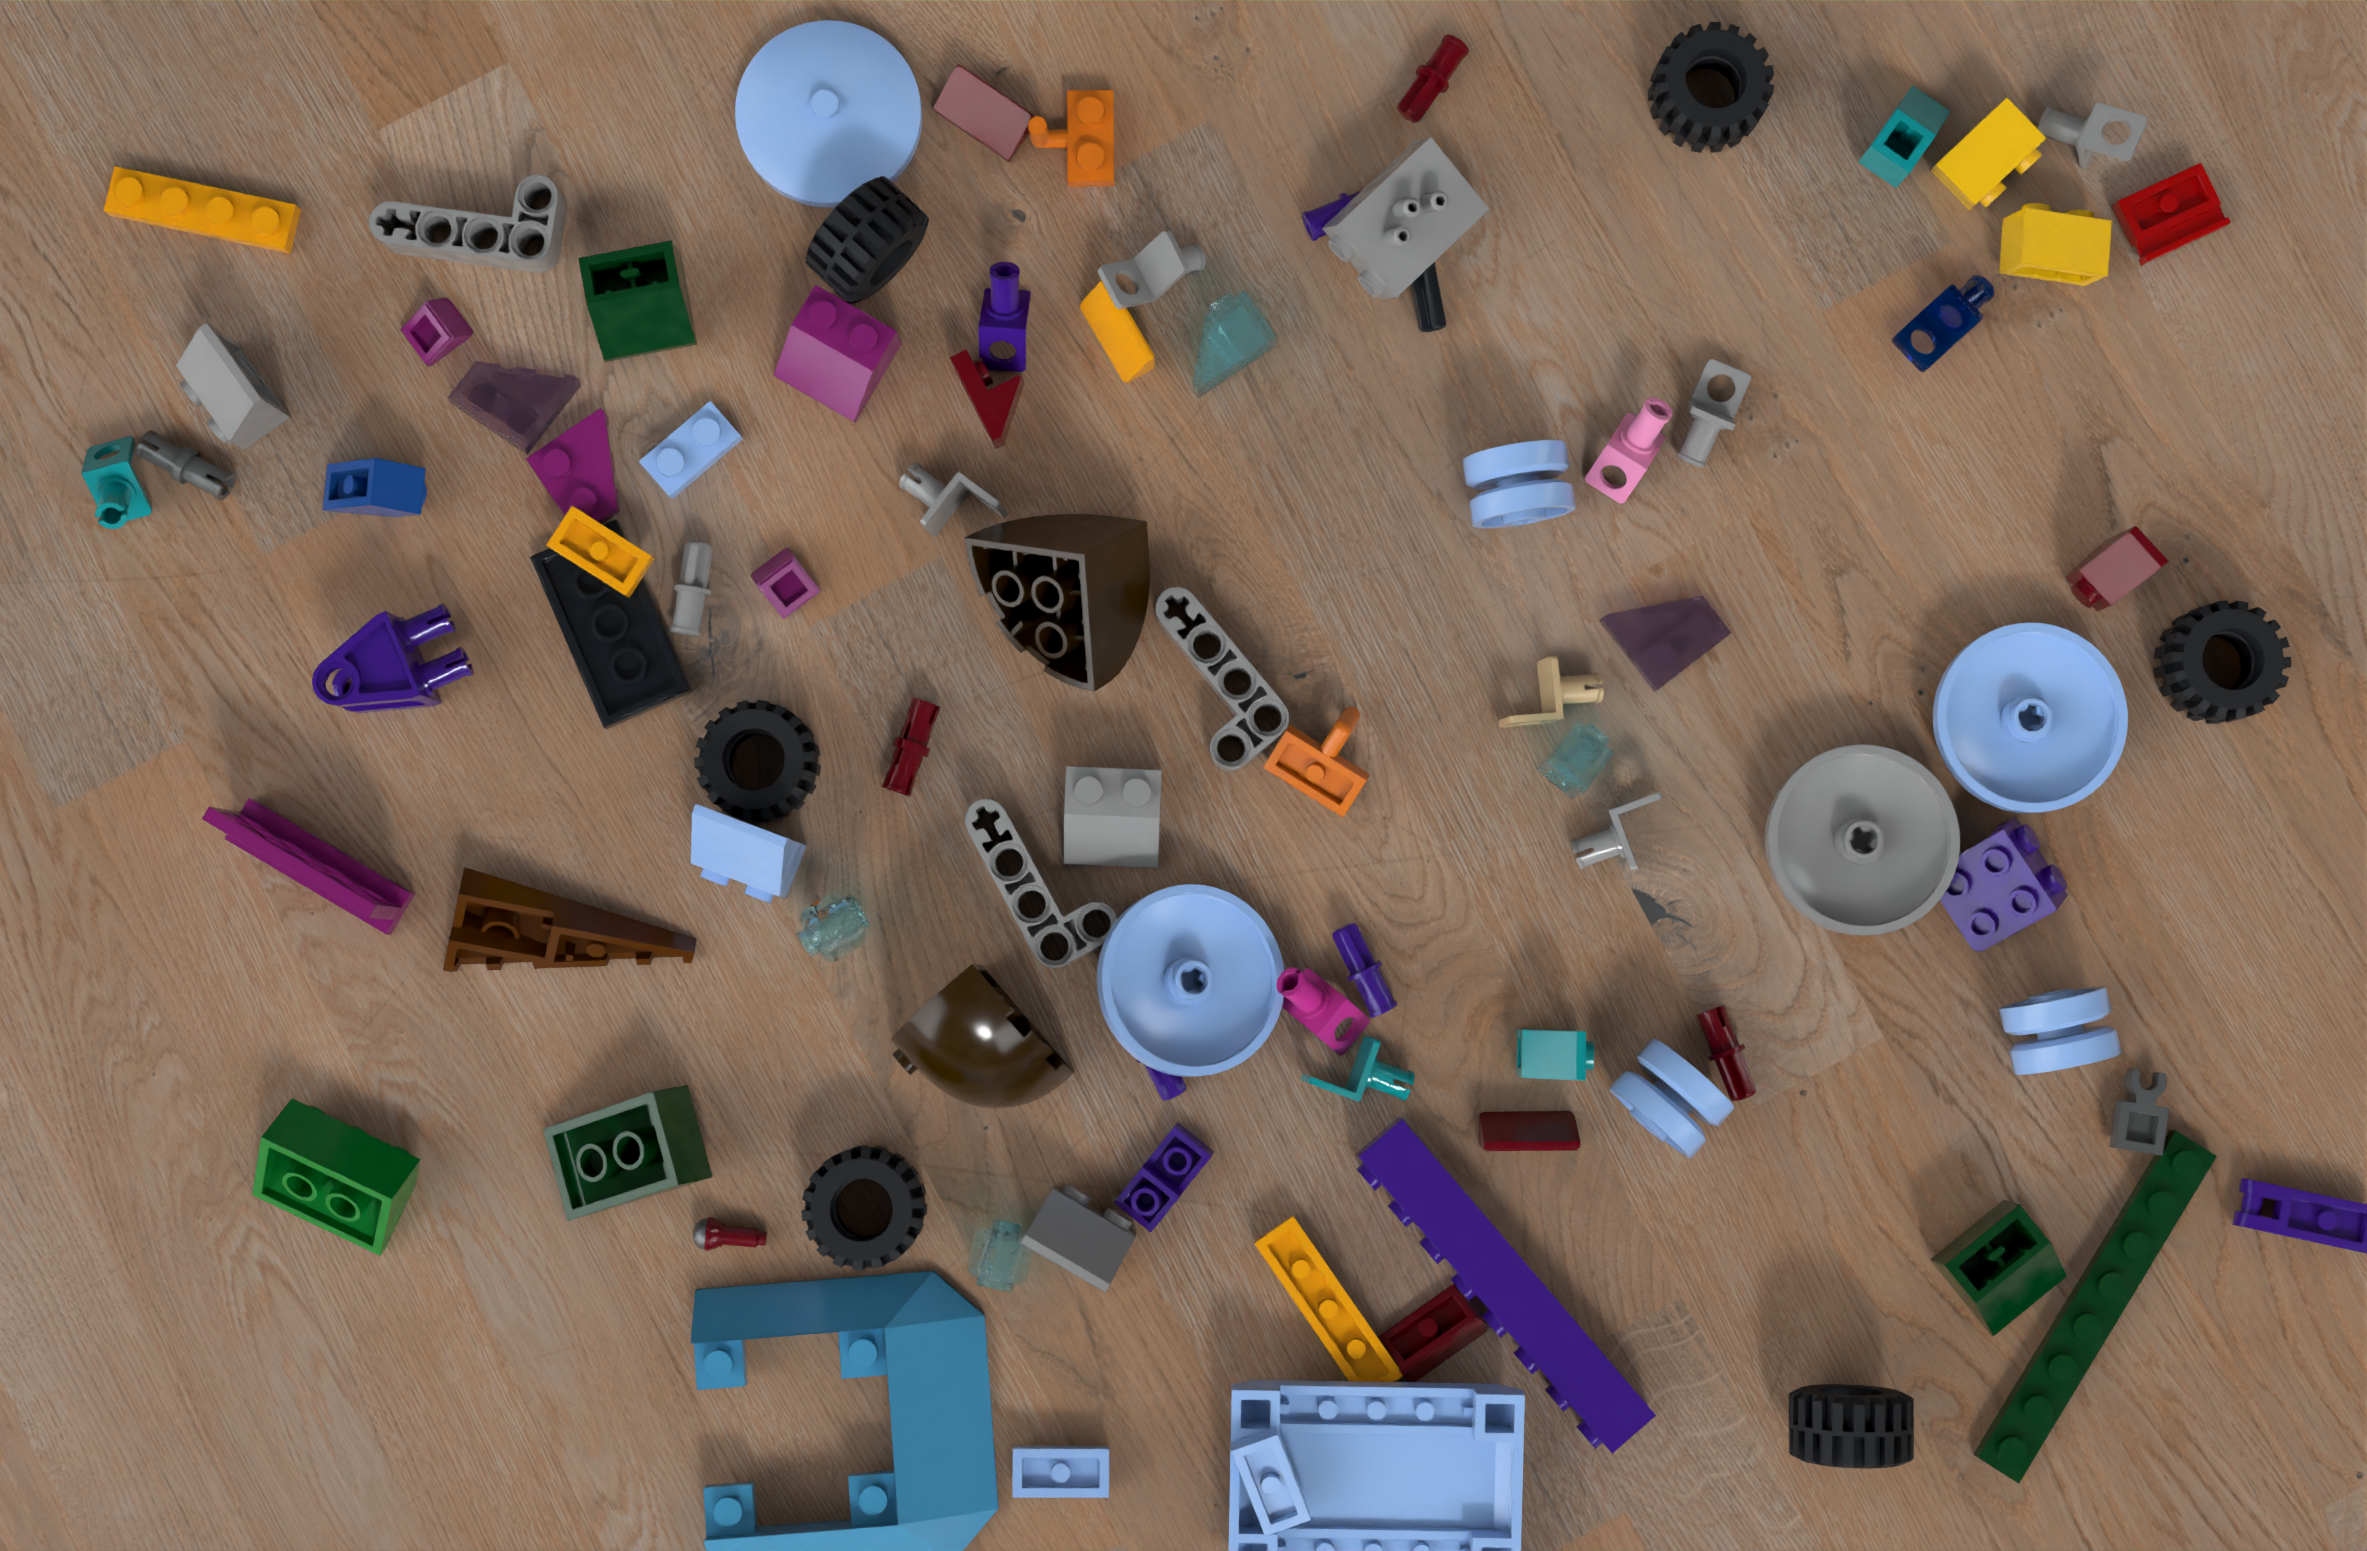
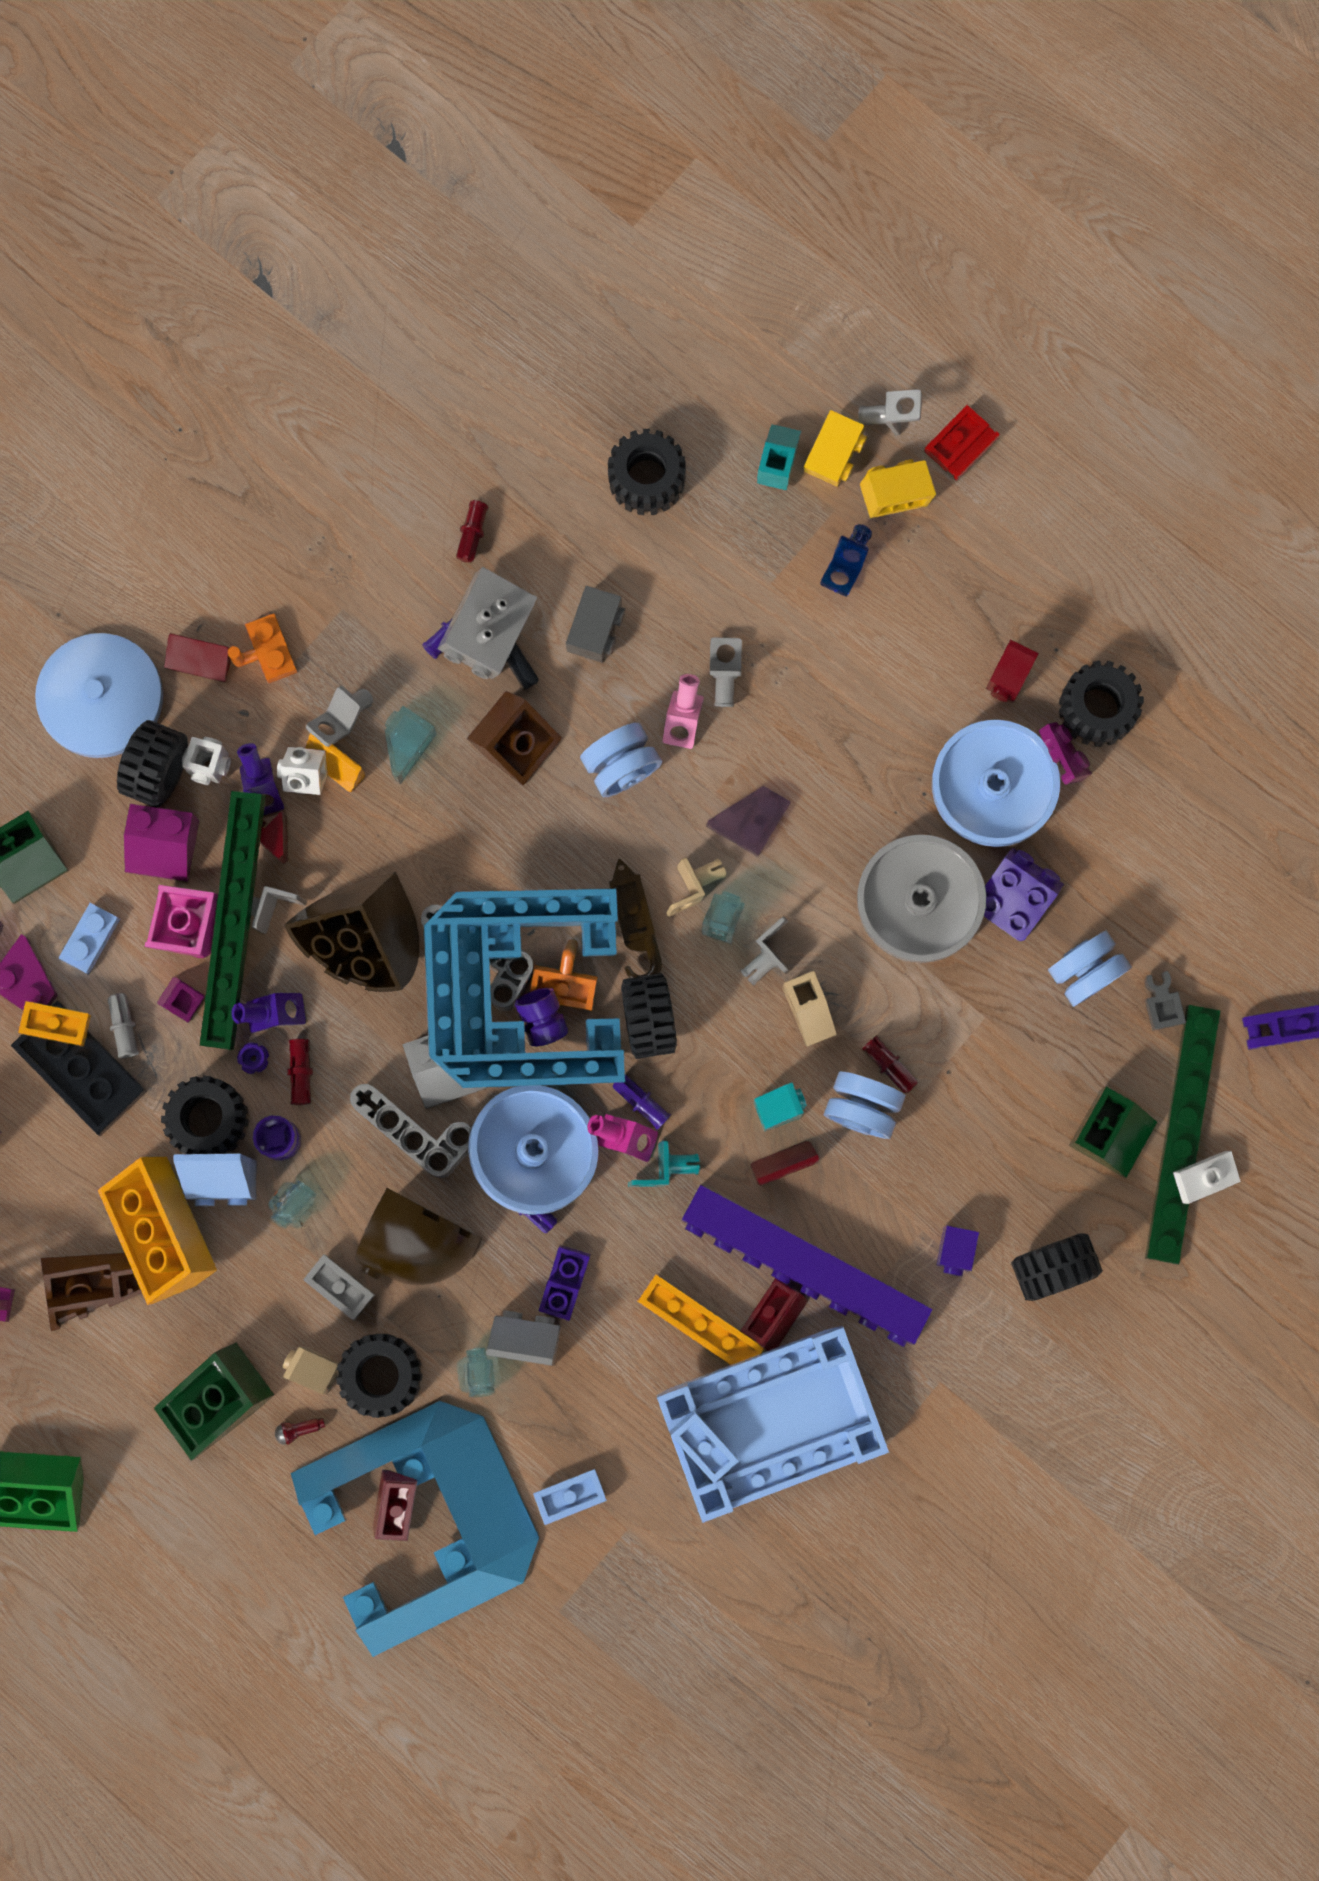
camera: 20 degrees left, 5 degrees down
(636, 890) = (157, 1229): none -> light orange slope
(774, 1163) = (310, 1369): none -> tan slope
(818, 1392) = (394, 1506): none -> dark red slope
(831, 478) = (183, 921): none -> dark pink slope
(845, 827) = (277, 1138): none -> dark purple wheel
(854, 690) = (249, 1050): none -> dark purple plate
(854, 1064) = (339, 1287): none -> light grey plate
(897, 501) = (232, 919): none -> dark green plate
(900, 648) = (269, 1011): none -> dark purple bracket
(940, 248) = (201, 751): none -> white brick
(1071, 329) = (303, 770): none -> white brick
(1156, 773) = (458, 992): none -> dark azure slope
(1270, 798) = (540, 1013): none -> dark purple wheel
(1381, 394) = (514, 737): none -> reddish brown slope
(1421, 859) = (649, 1016): none -> black tyre
(1451, 715) = (635, 918): none -> dark brown plate
(1554, 276) = (594, 624): none -> dark grey brick
(1646, 933) = (809, 1008): none -> tan slope
(1720, 1345) = (957, 1250): none -> dark purple brick
(2106, 1380) = (1206, 1177): none -> white plate
(2140, 705) = (1061, 750): none -> magenta wing

